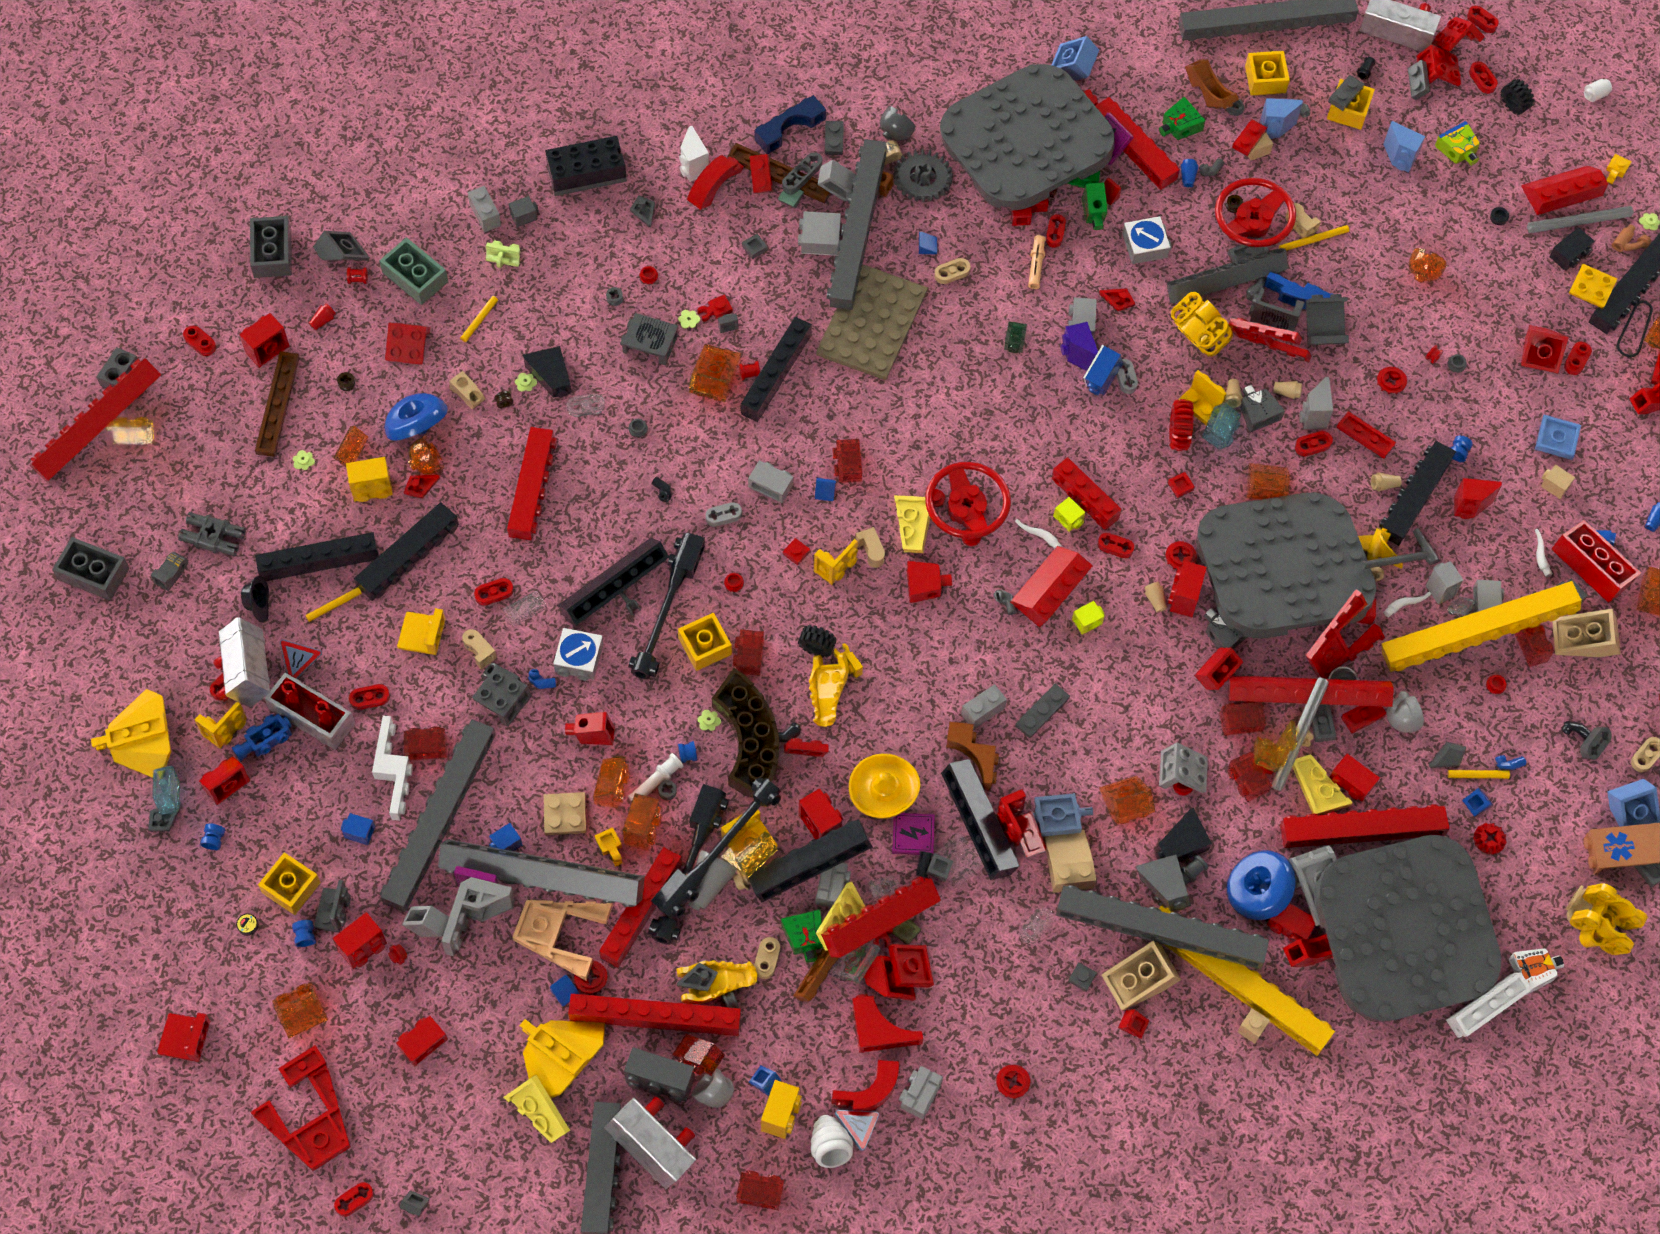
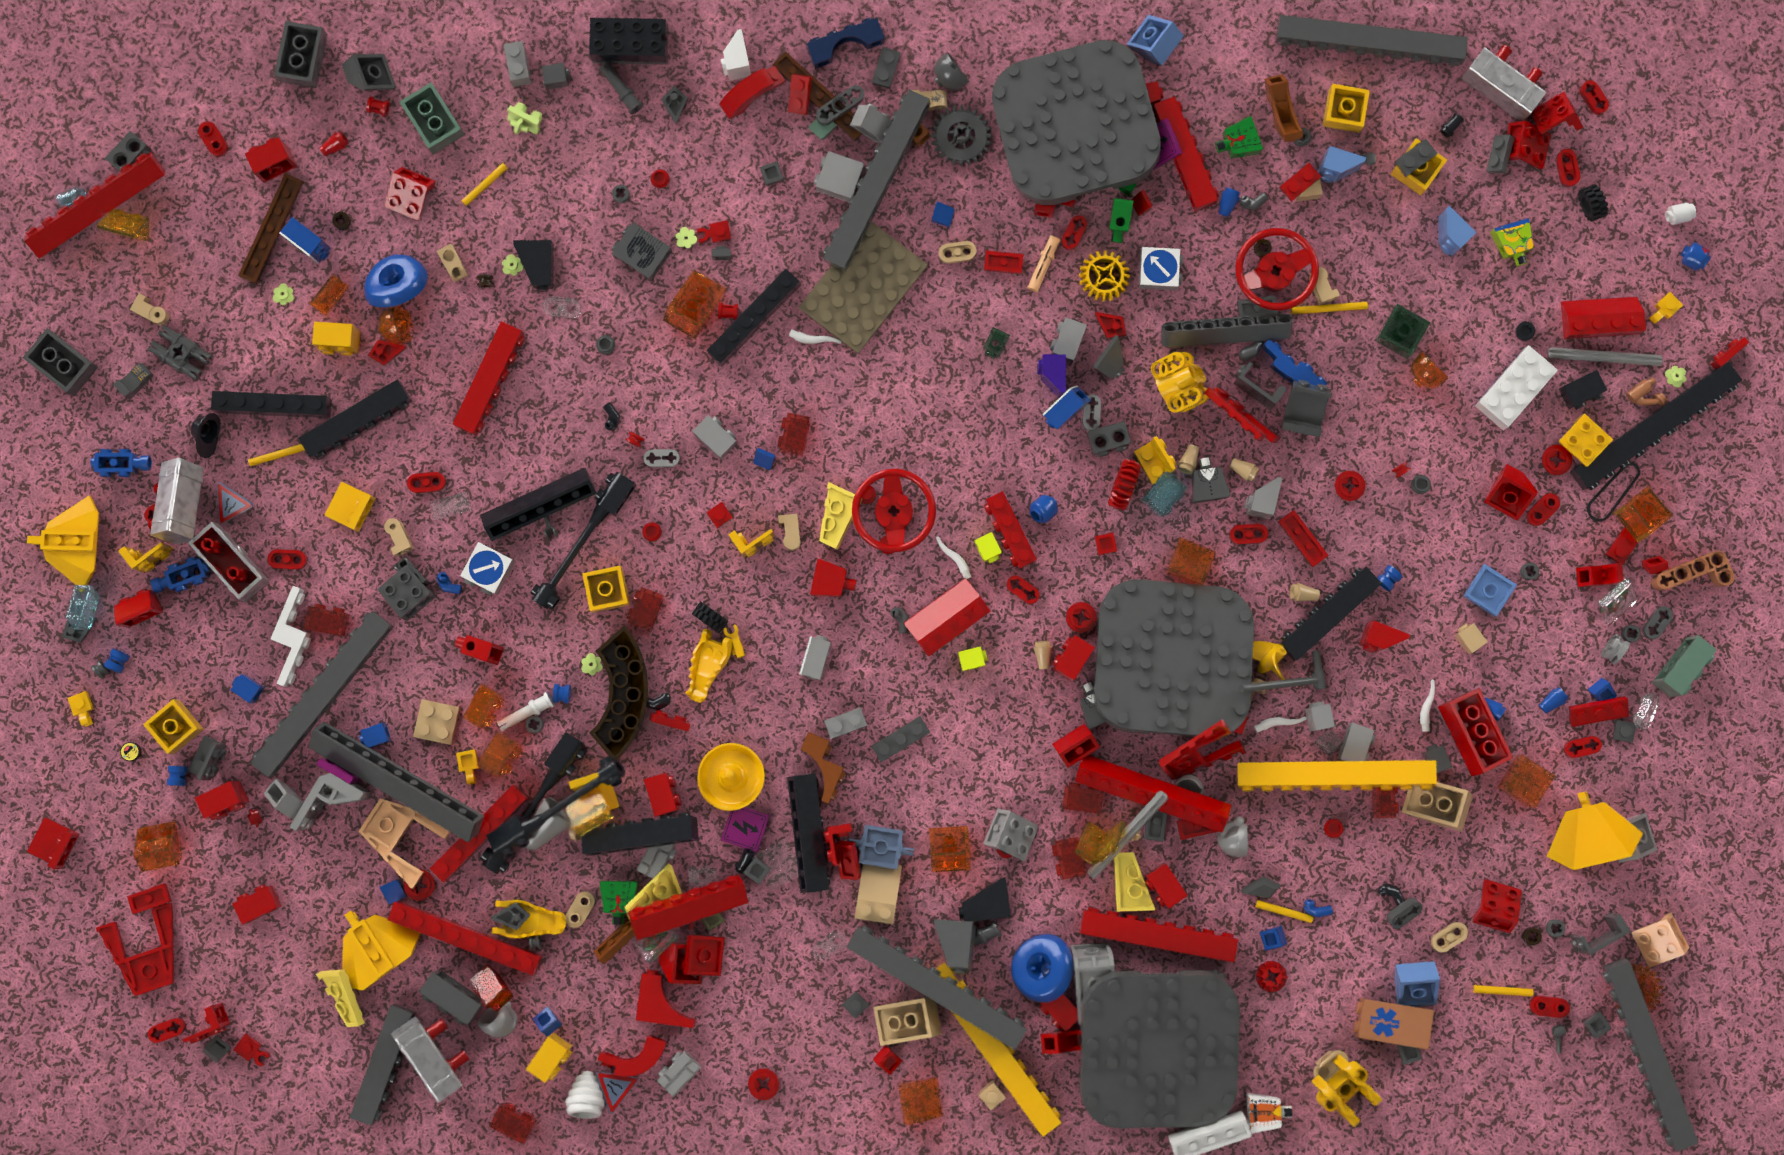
camera: 20 degrees right, 20 degrees up
(67, 418) = (66, 198): none -> clear light blue brick
(166, 649) = (118, 461): none -> blue brick
(171, 504) = (154, 314): none -> tan leg
(184, 893) = (80, 706): none -> yellow plate
(197, 850) = (100, 670): none -> dark grey bush
(316, 401) = (305, 240): none -> blue piece
(407, 1178) = (216, 1017): none -> red bracket
(450, 1194) = (249, 1049): none -> red plate
(595, 213) = (625, 94): none -> dark grey pin
(692, 503) = (634, 439): none -> red bush
(831, 378) = (803, 338): none -> white animal
(935, 652) = (815, 657): none -> light grey piece
(998, 269) = (1003, 262): none -> red plate
(1104, 266) = (1111, 281): none -> yellow gear
(1111, 467) = (1043, 509): none -> blue head
(1130, 322) = (1111, 359): none -> dark grey slope
(1148, 390) = (1106, 433): none -> dark grey brick
(1179, 1053) = (920, 1100): none -> clear orange slope
(1389, 238) = (1402, 331): none -> clear green brick
(1511, 261) = (1516, 387): none -> white brick
(1577, 308) = (1563, 454): none -> red gear
(1592, 411) = (1535, 569): none -> dark grey bush
(1626, 119) = (1695, 256): none -> blue head

